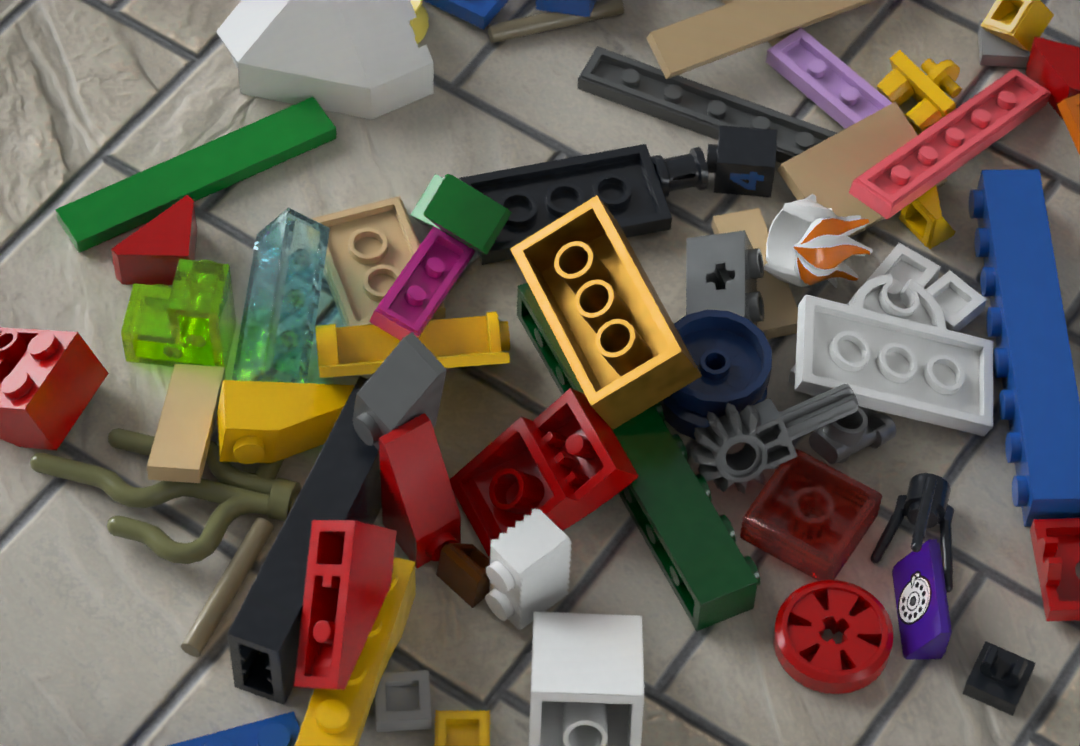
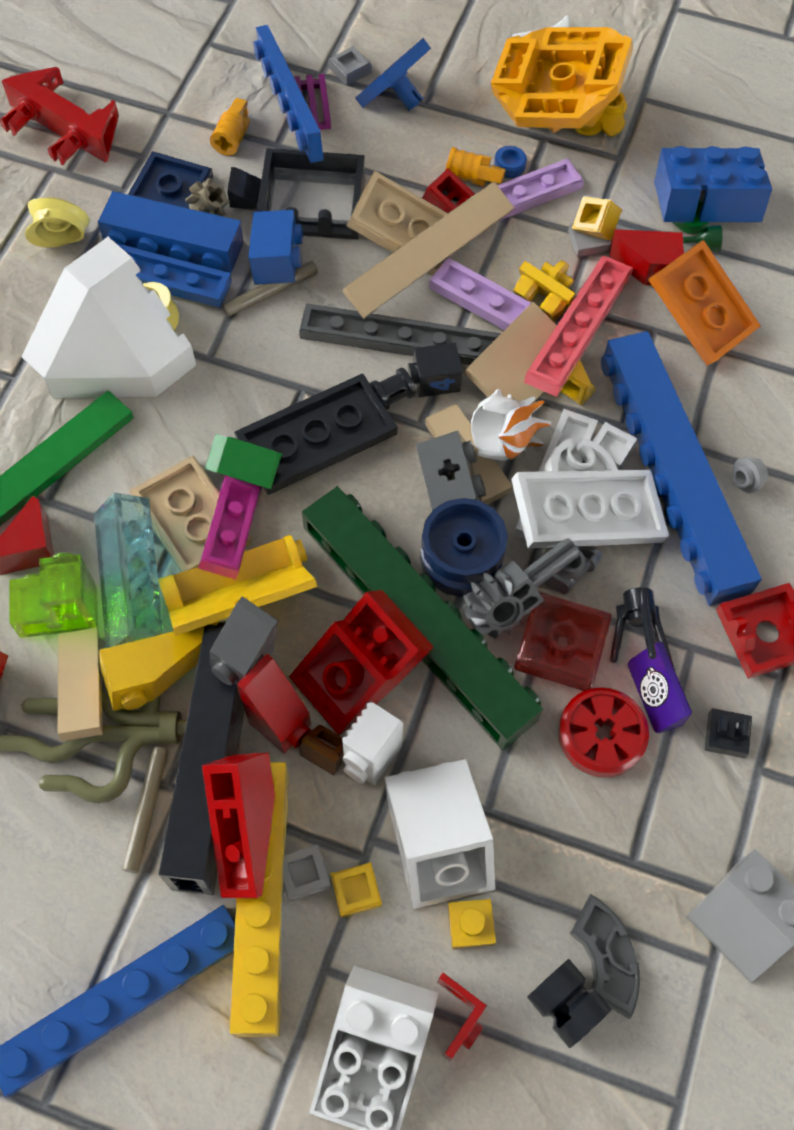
camera: 15 degrees left, 10 degrees up
(605, 313) = (376, 525): pearl gold brick -> none

